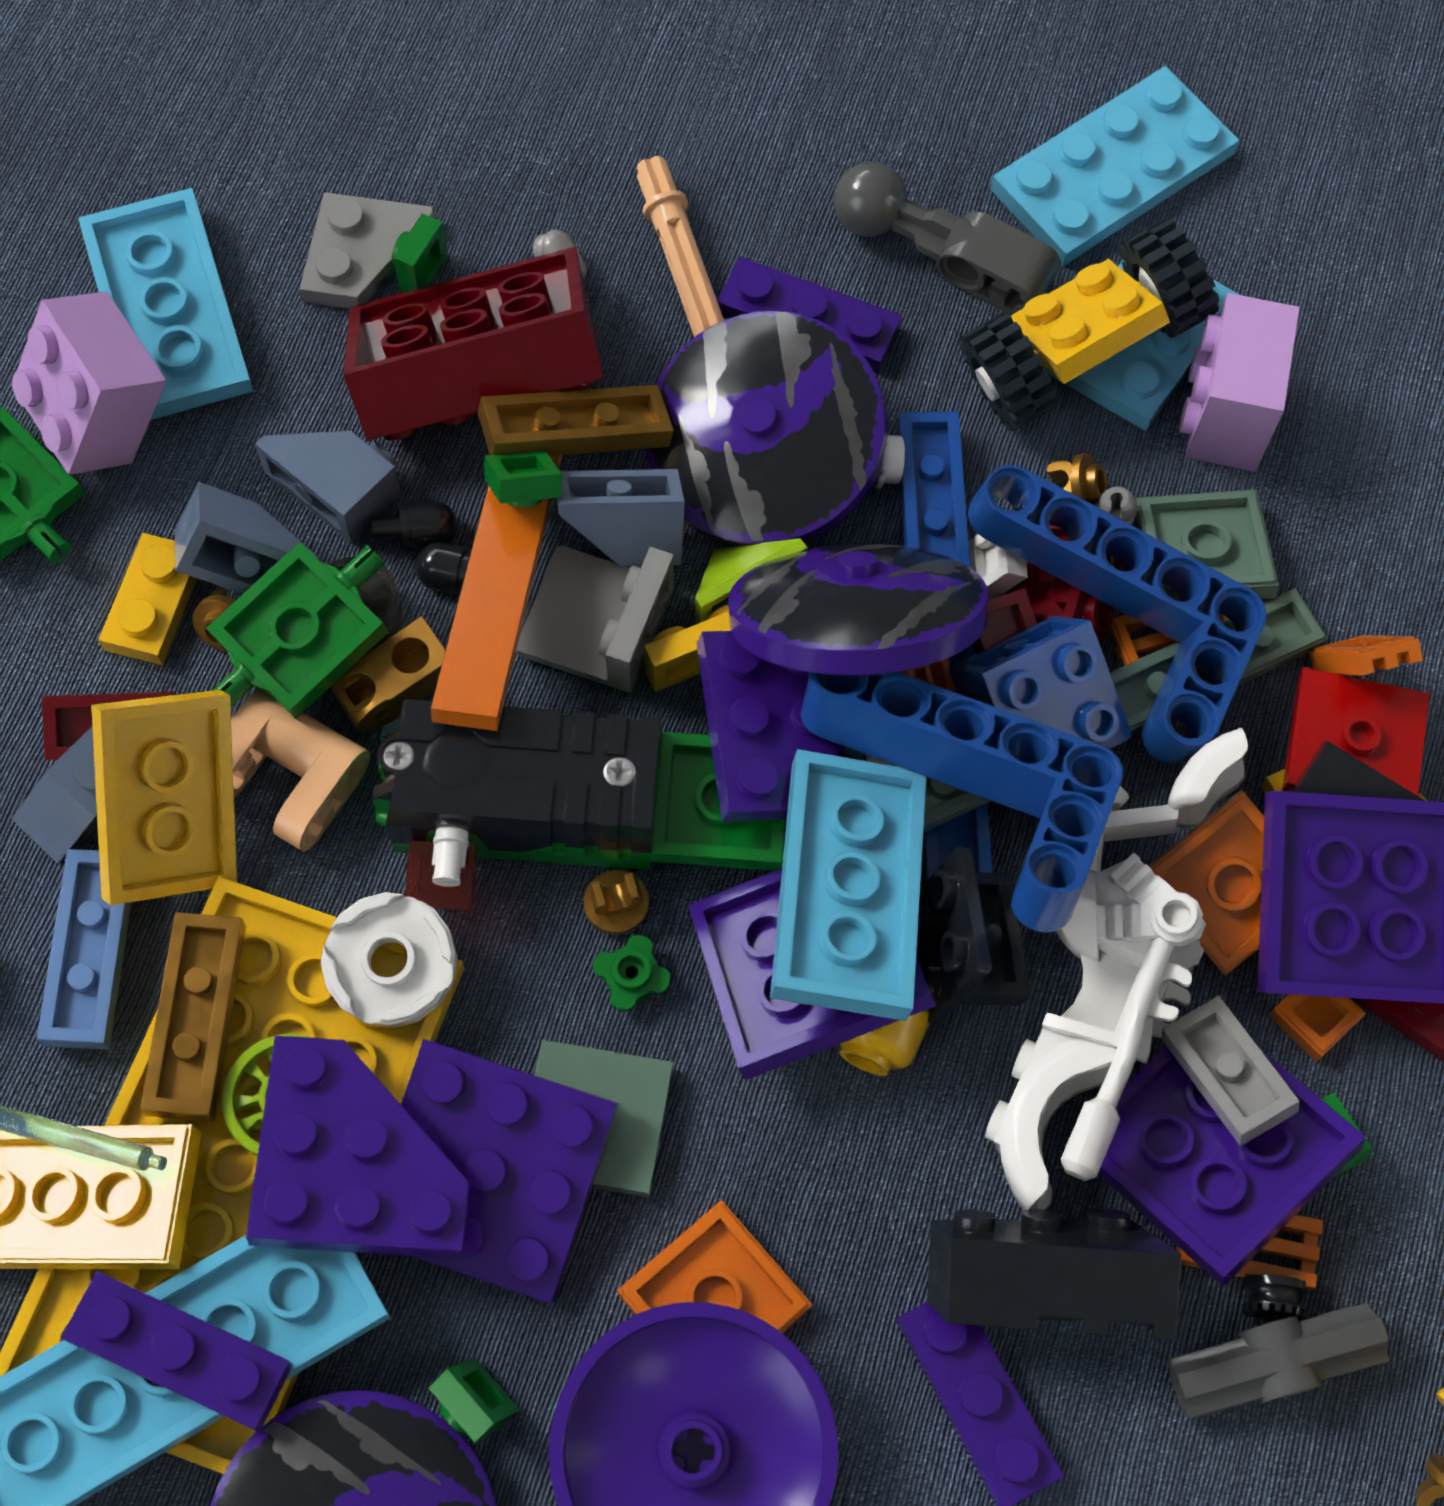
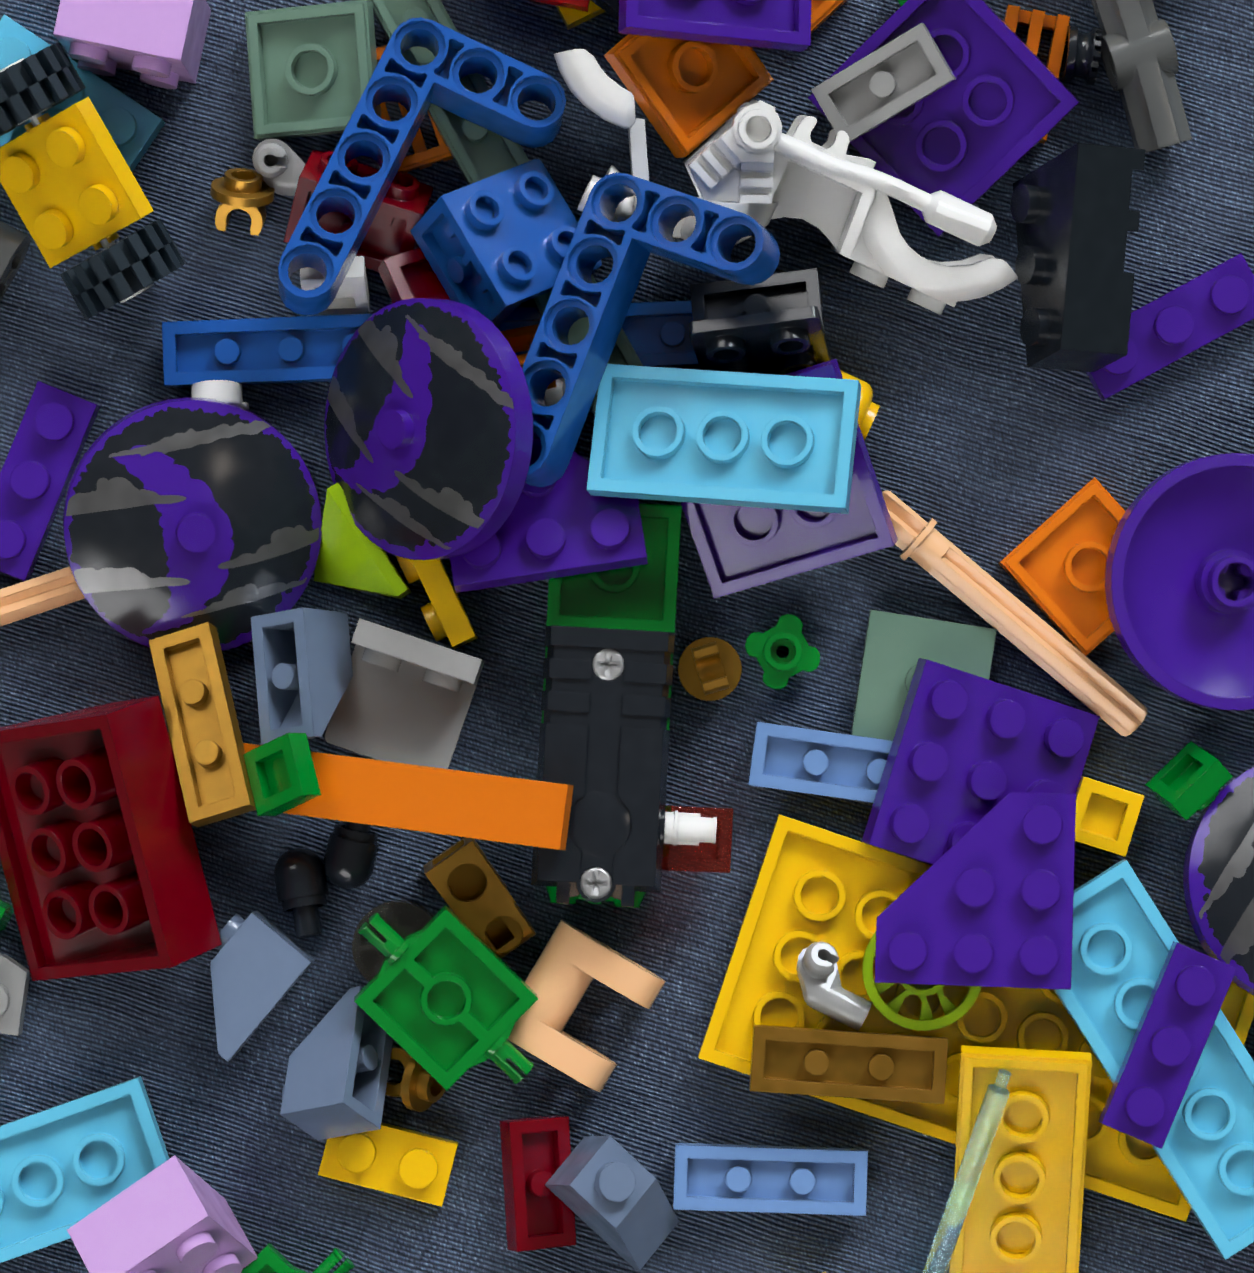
camera: 90 degrees left, 20 degrees up
(164, 795) = (635, 1110): yellow plate -> none
(276, 996) = (823, 987): none -> light grey arm
(413, 991) = (749, 875): white tile -> none
(441, 1304) = (1105, 816): none -> yellow plate
(516, 1000) = (817, 762): none -> medium blue plate
(661, 1209) = (1013, 618): none -> light nougat axle

